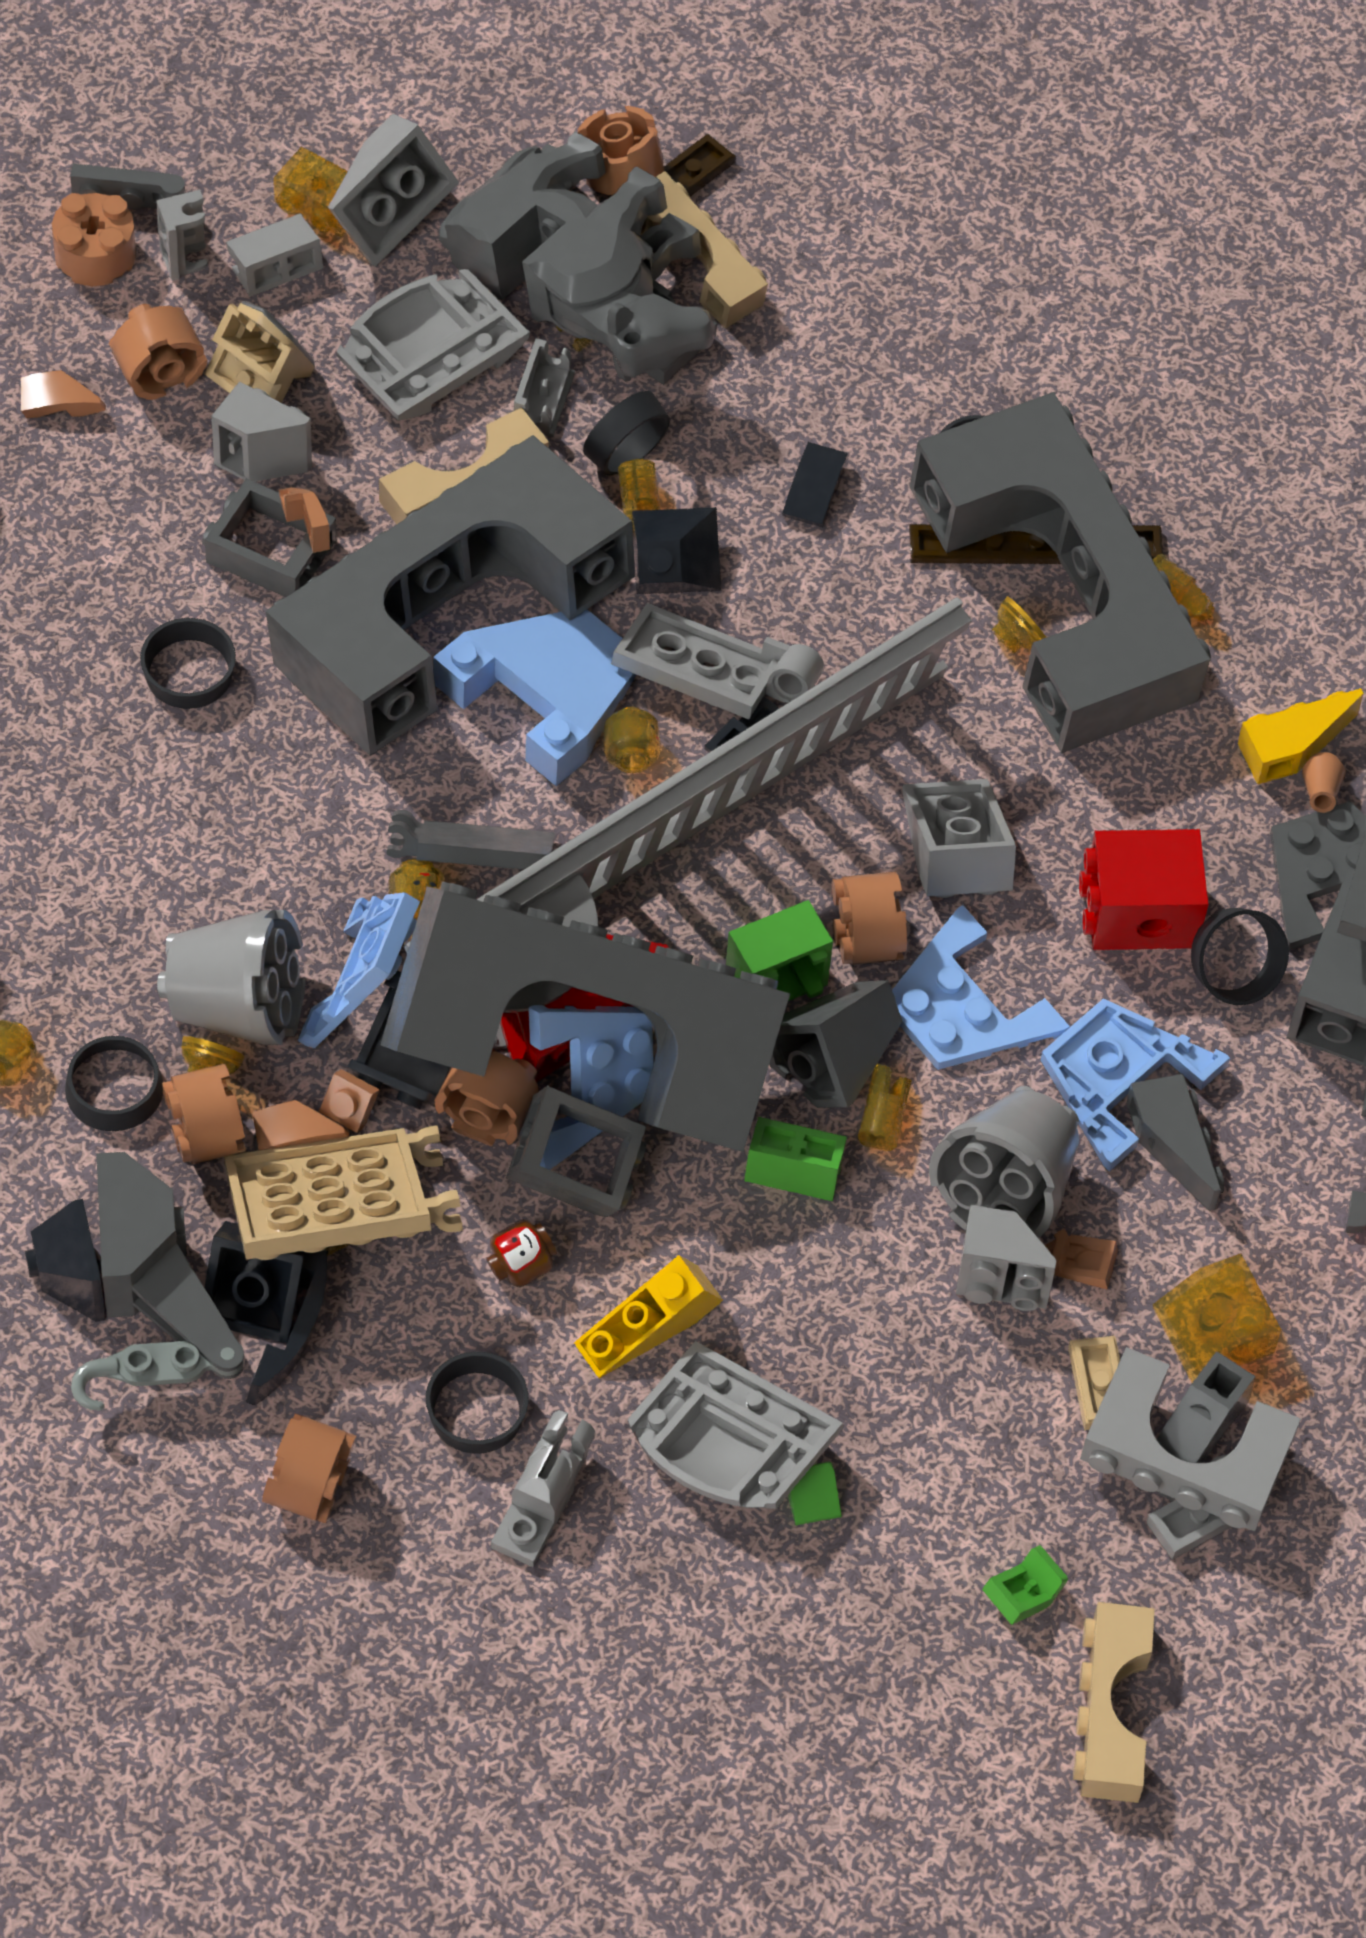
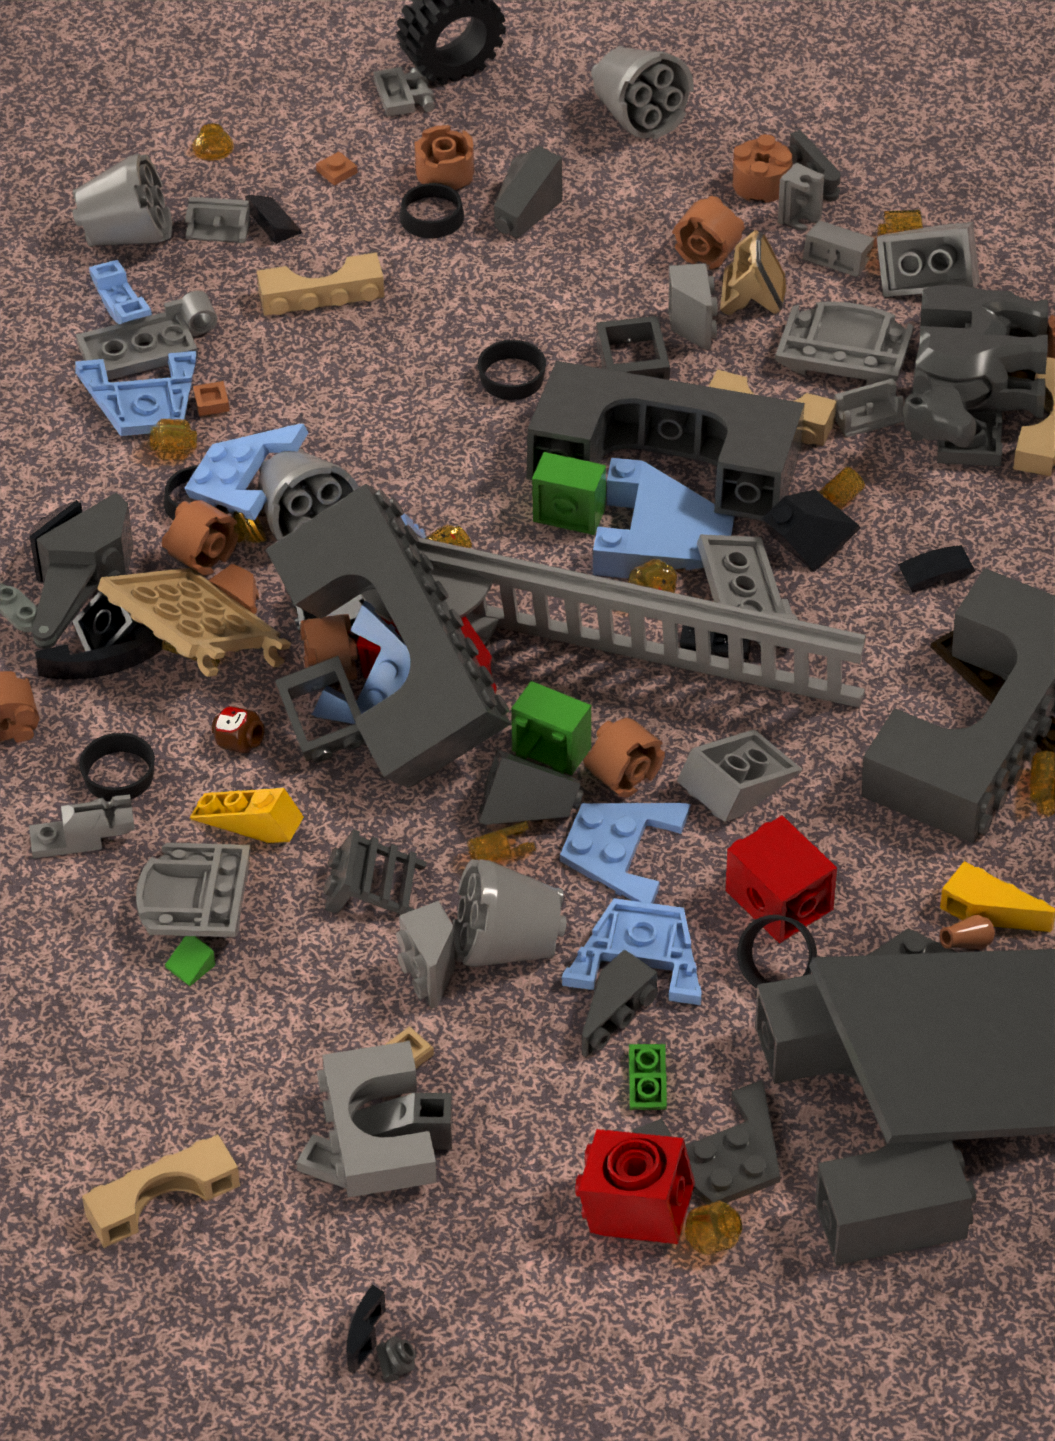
camera: 60 degrees right, 10 degrees down
(57, 392) = (642, 217): nougat slope -> none
(134, 1024) = (233, 464): none -> light blue wing
(305, 505) = (649, 350): nougat slope -> none
(349, 1100) = (274, 599): nougat plate -> none
(448, 728) = (569, 493): none -> bright green container
(467, 843) = (488, 534): dark grey tile -> none
(631, 427) = (874, 438): black tyre -> none
(795, 1158) = (421, 818): bright green hinge -> none
(834, 1255) = (354, 869): none -> dark grey plate
(1015, 627) = (931, 709): clear yellow piece -> none
(1027, 1586) = (205, 1099): bright green bracket -> none
(1083, 1258) = (479, 1002): nougat slope -> none
(1218, 1312) = (498, 1097): clear yellow slope -> none
(1294, 1176) = (647, 1077): none -> bright green slope

